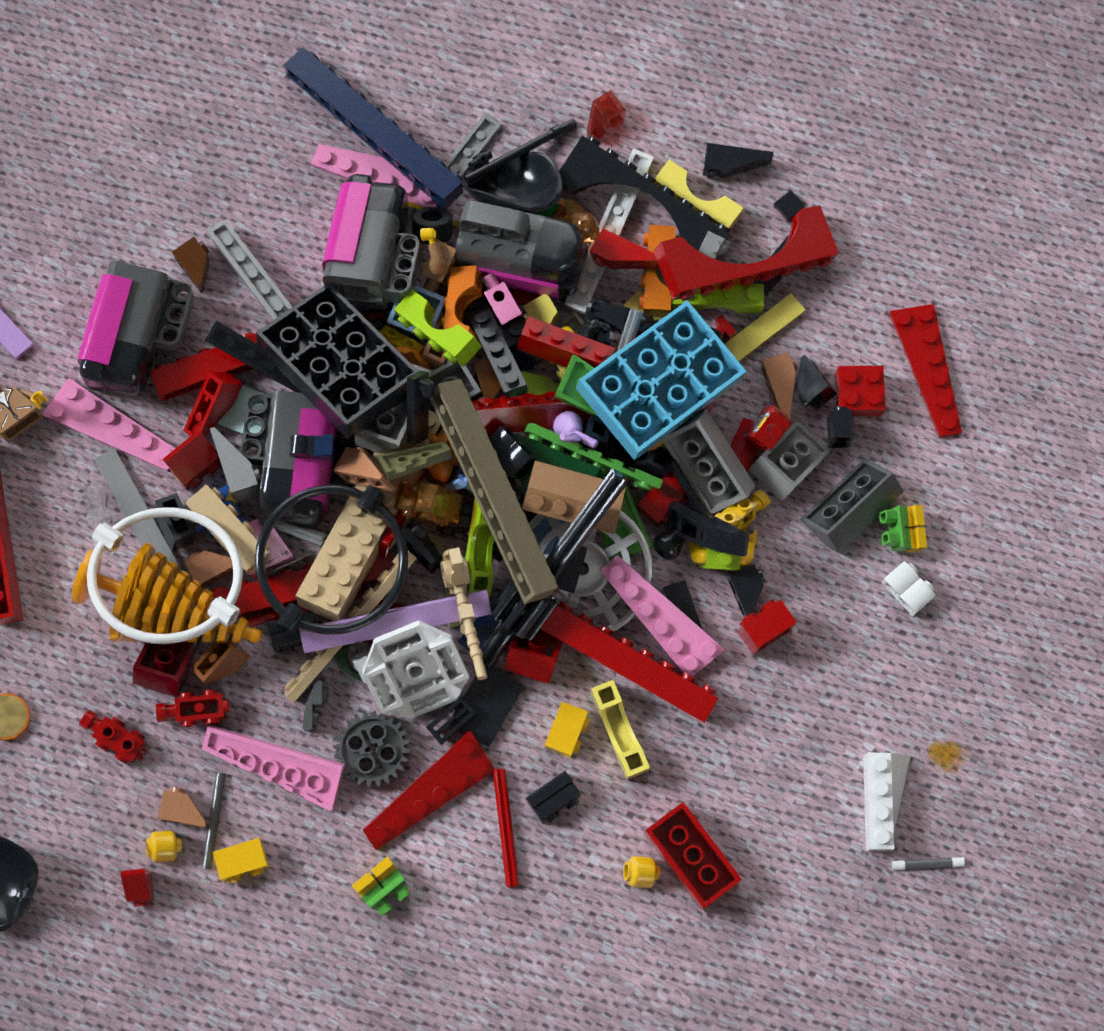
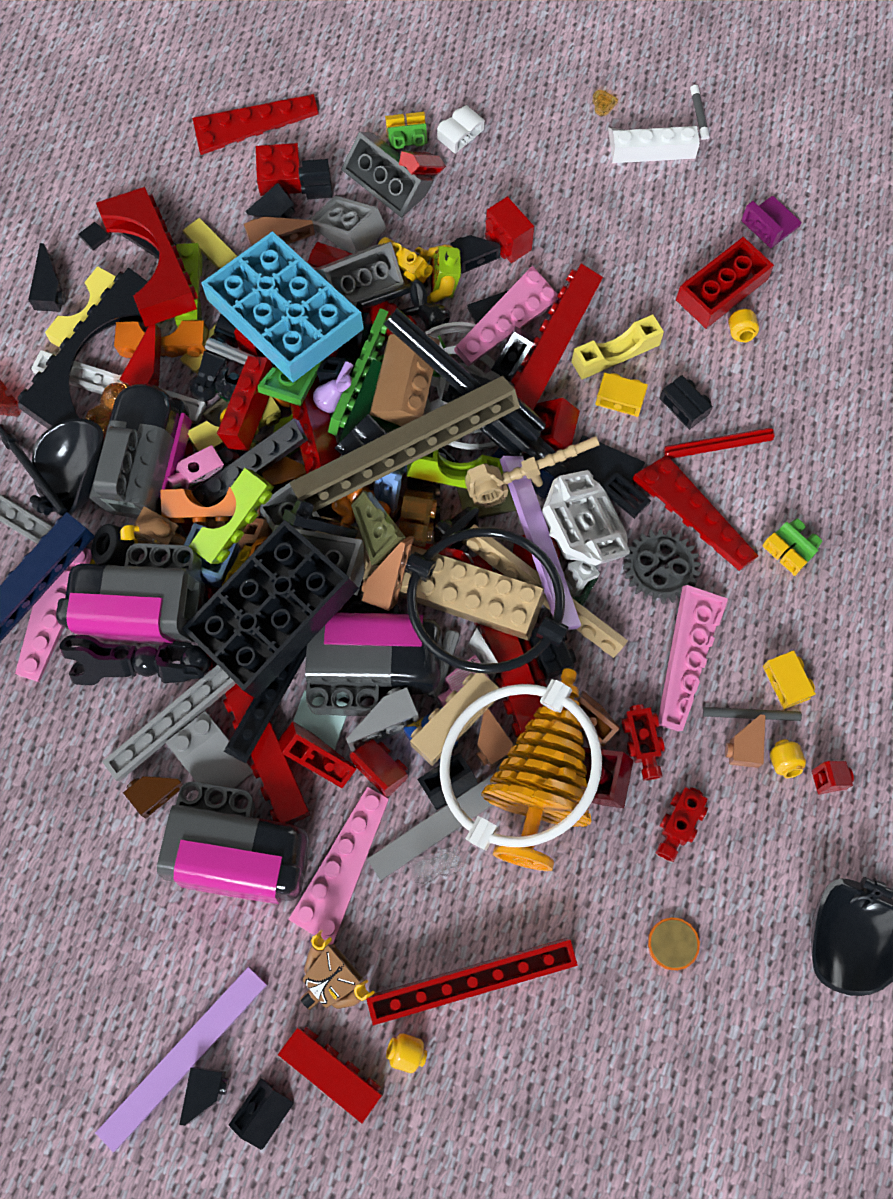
camera: 90 degrees left, 5 degrees down
(228, 304) = (202, 753): none -> light grey slope
(312, 447) = (368, 623): leg -> none
(316, 699) = (619, 623): dark grey slope -> none
(317, 220) = (120, 660): none -> black piece
(614, 618) = (513, 353): none -> black slope
(707, 532) = (428, 271): black slope -> none
(714, 246) = (139, 273): light grey brick -> none
(768, 427) = (322, 229): red torso -> none
(775, 924) = (770, 221): none -> magenta bracket
(856, 539) = (421, 163): none -> piece

